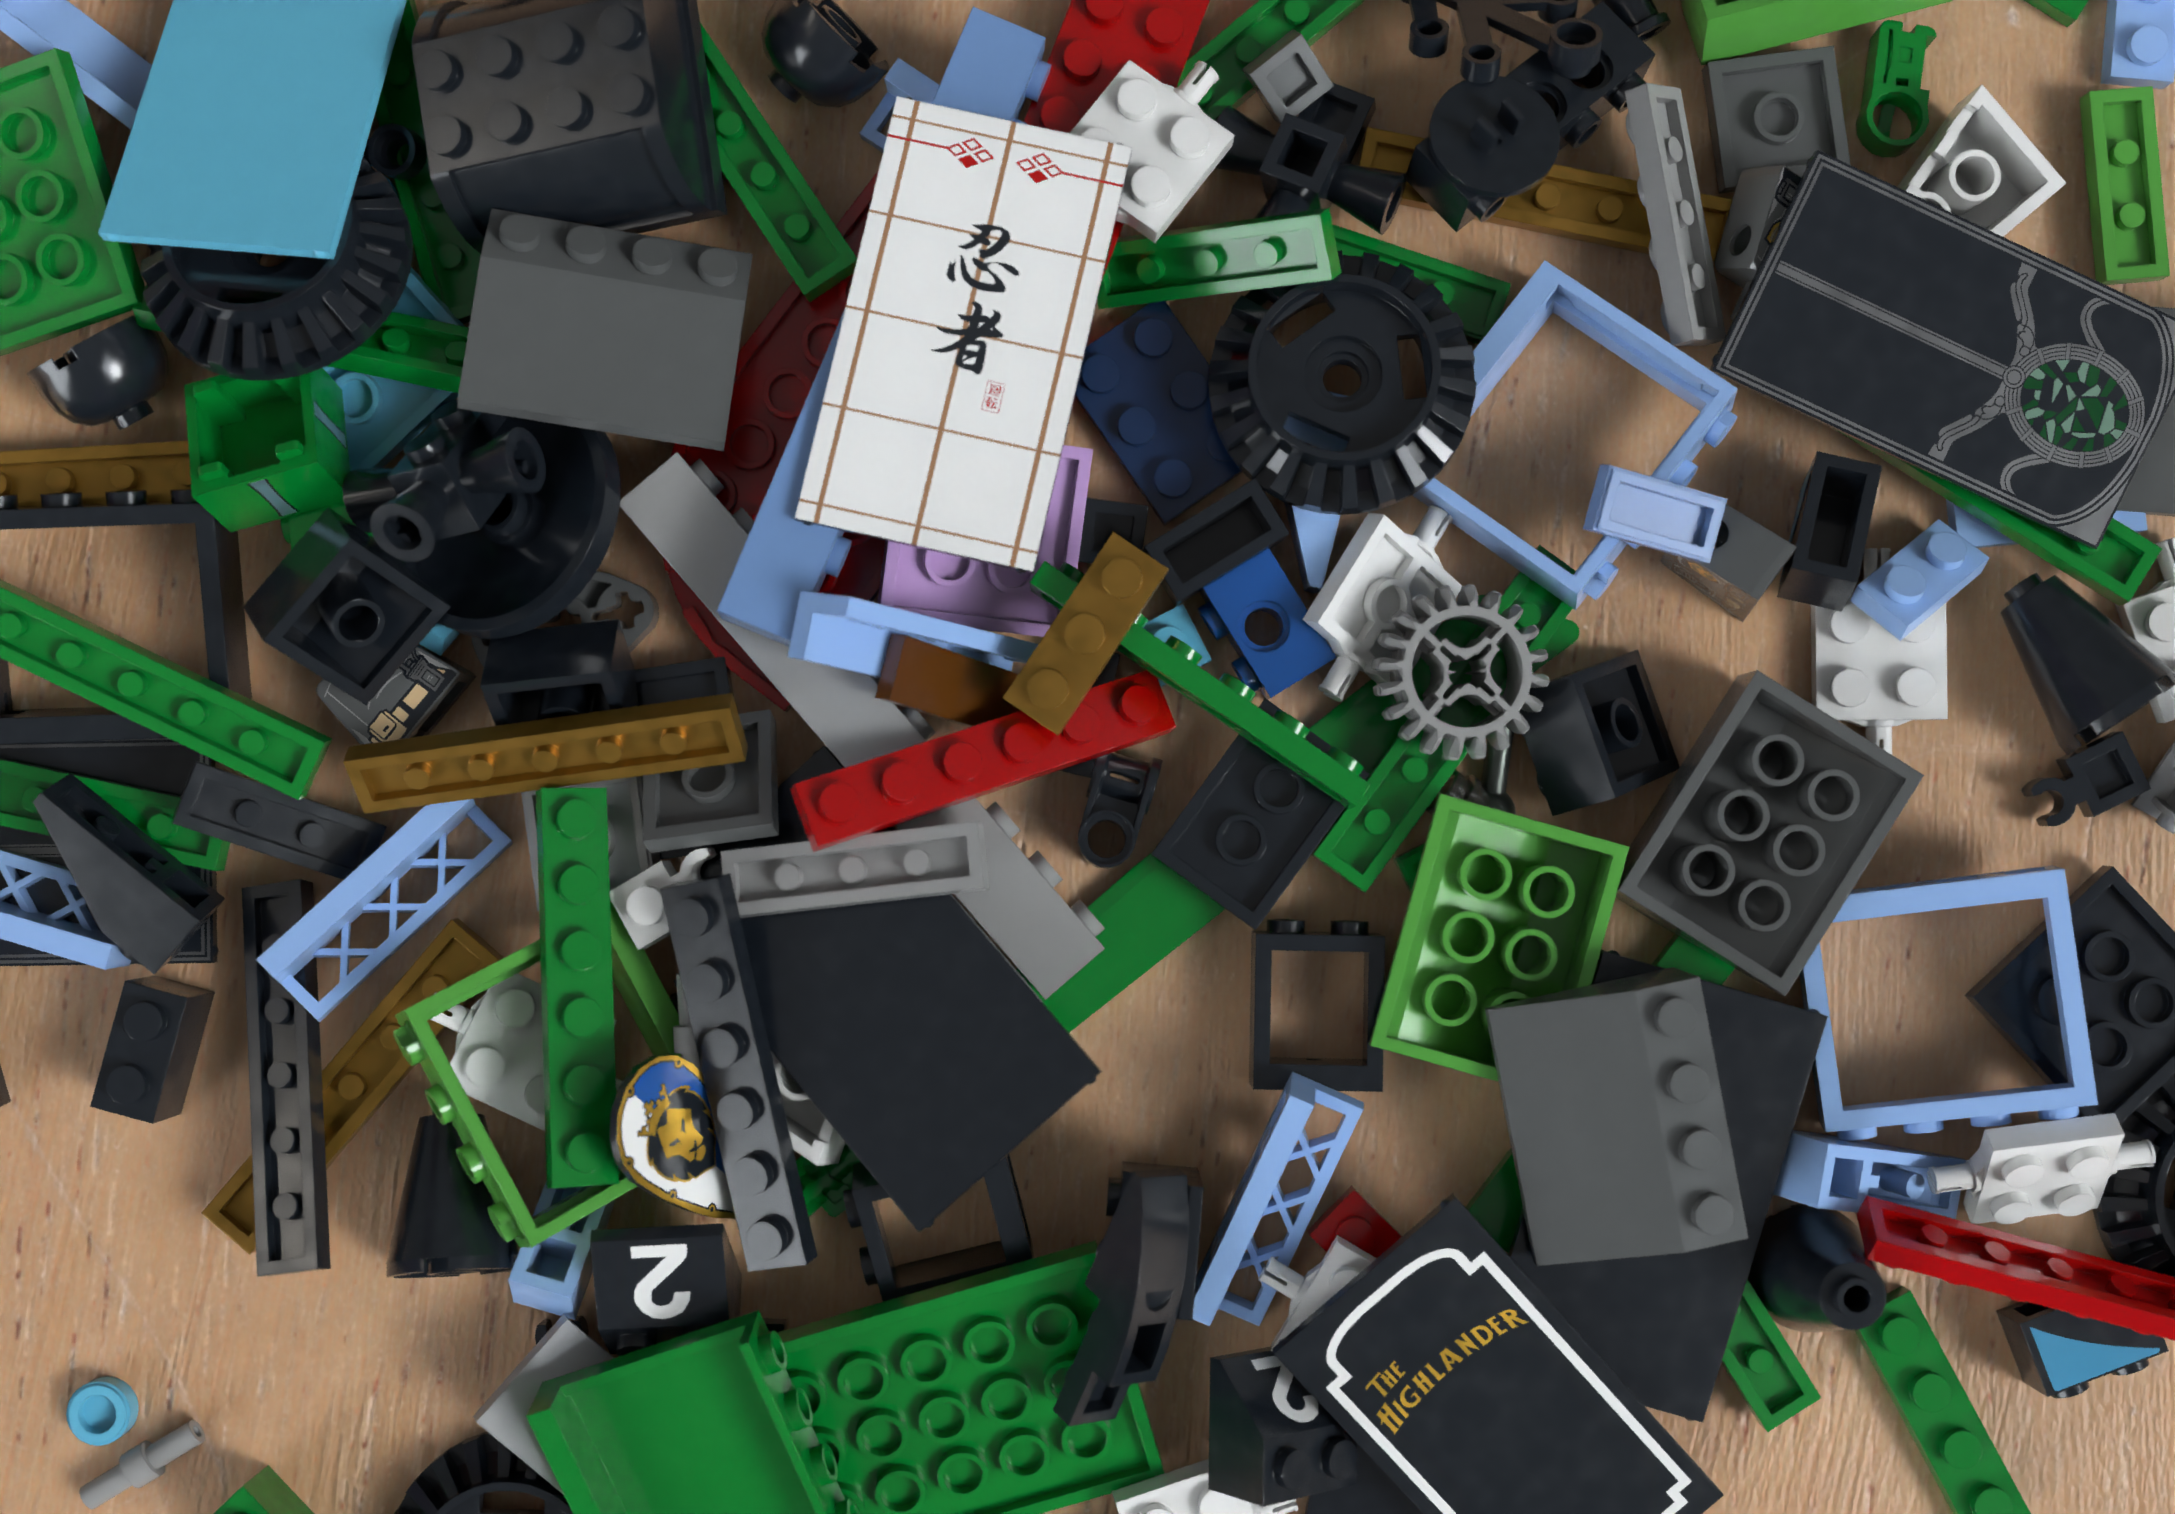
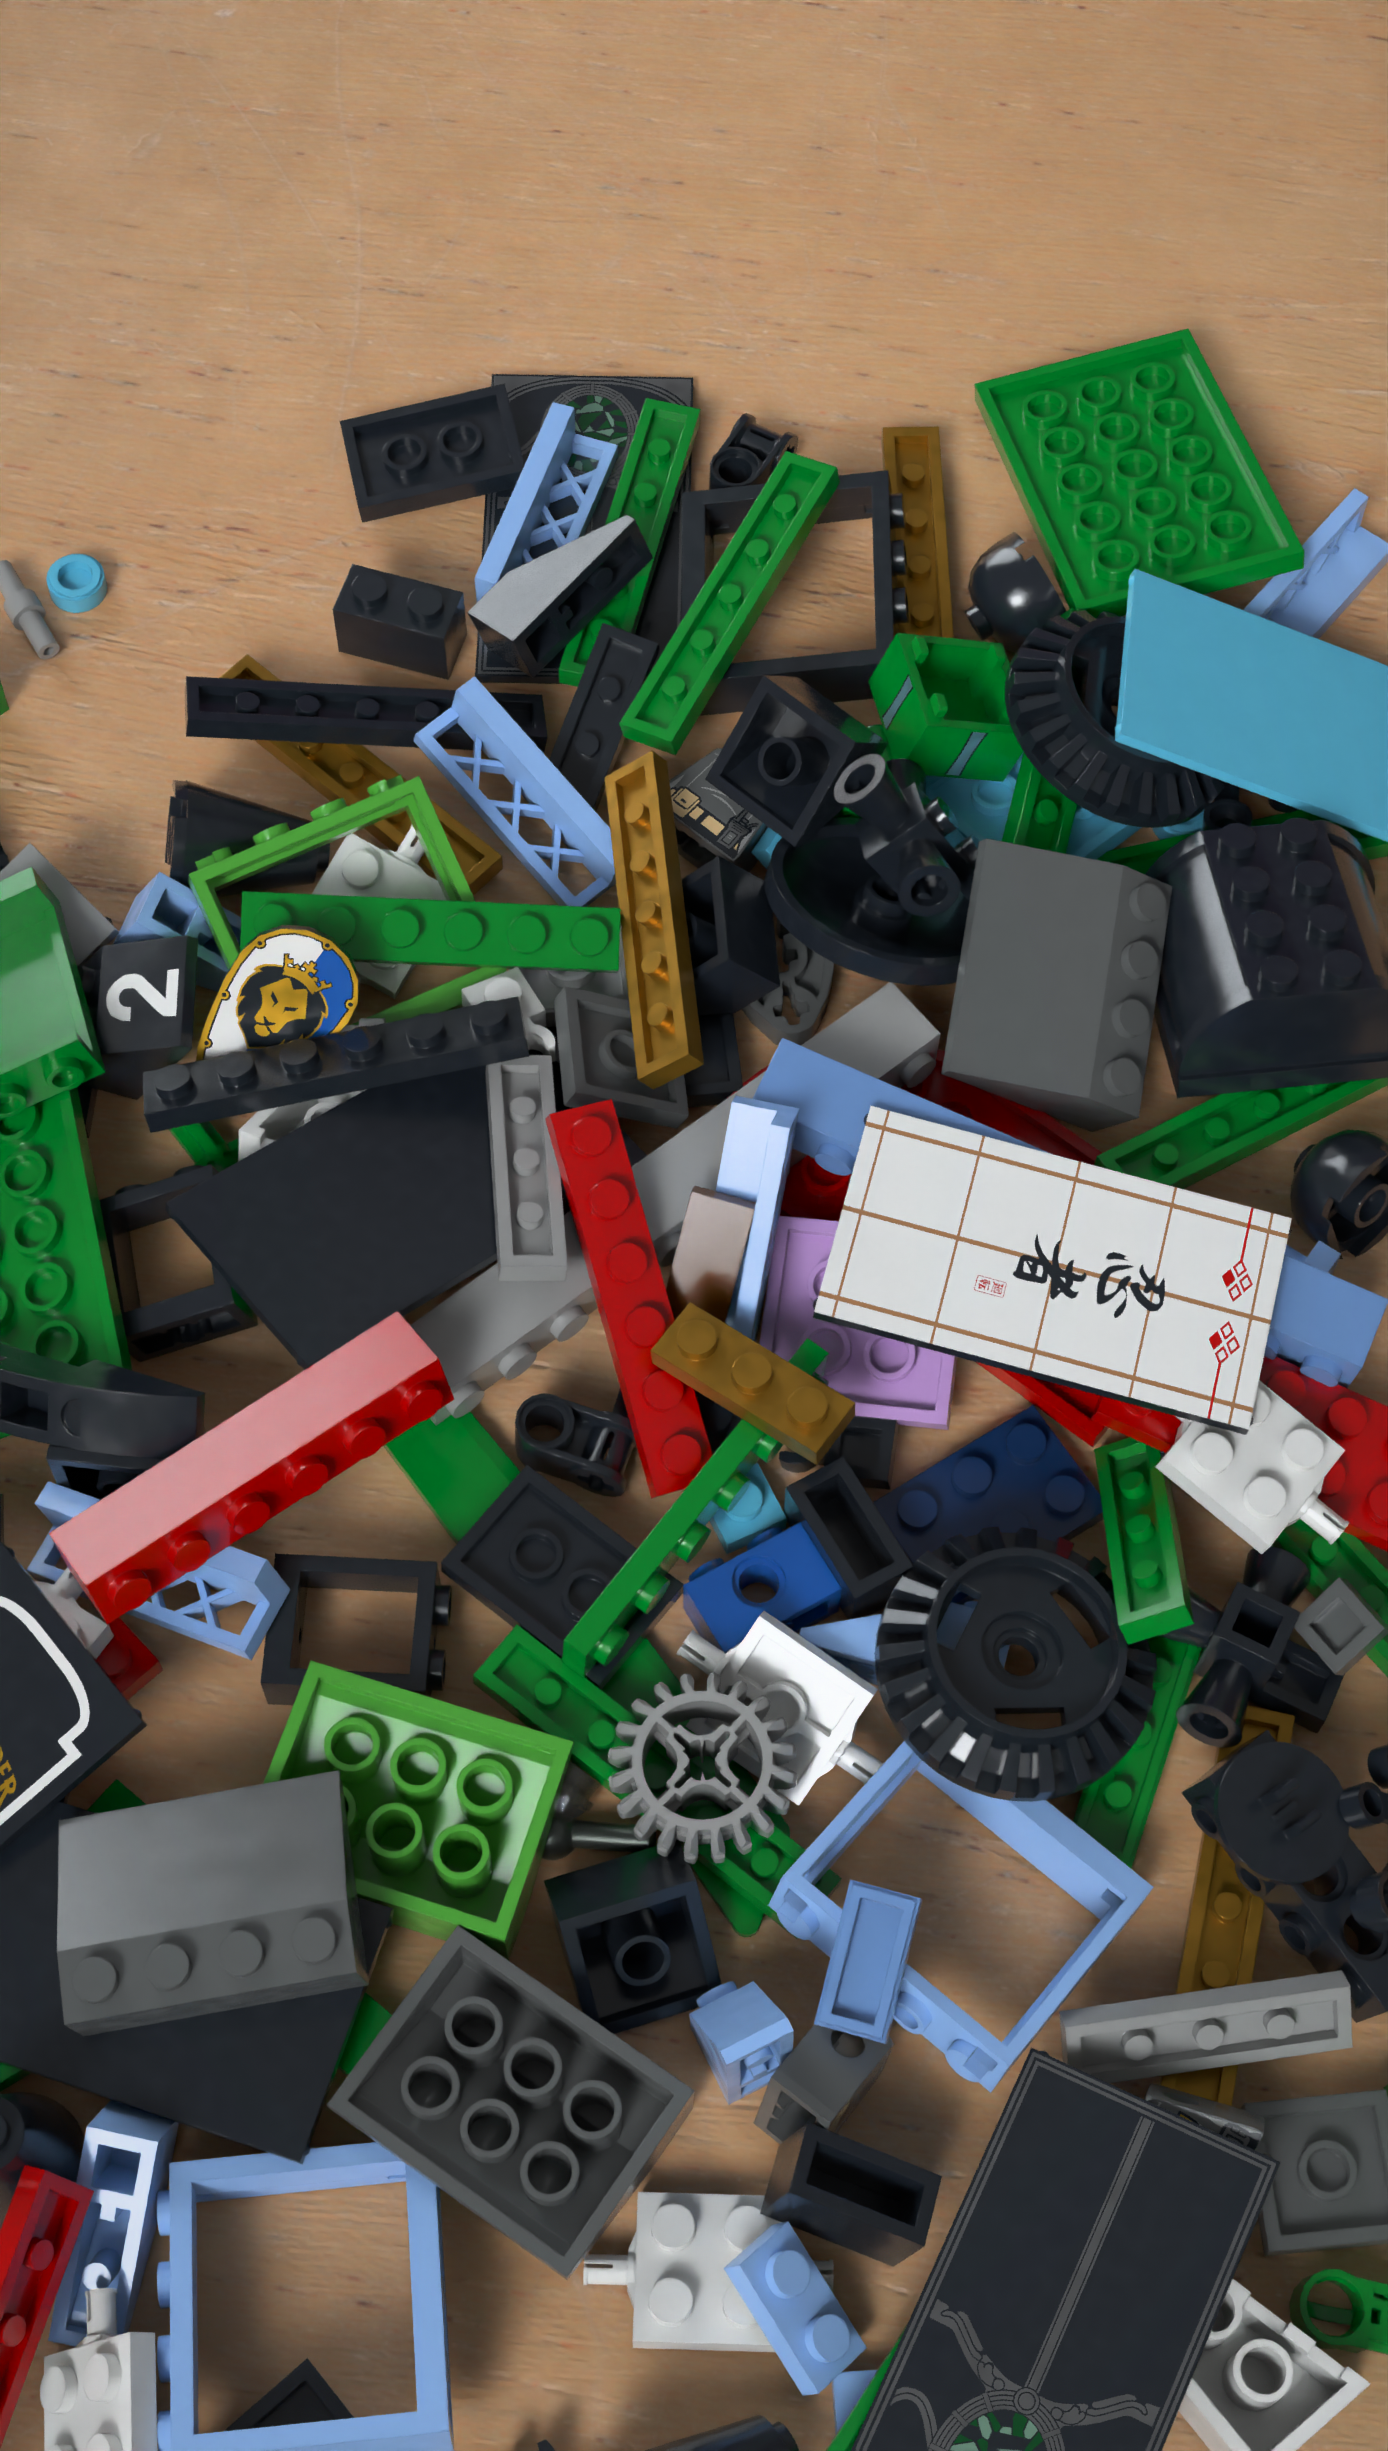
camera: 90 degrees right, 25 degrees down
(1200, 1116) = (252, 1466): none -> brick
(1705, 629) = (741, 2037): none -> light blue slope

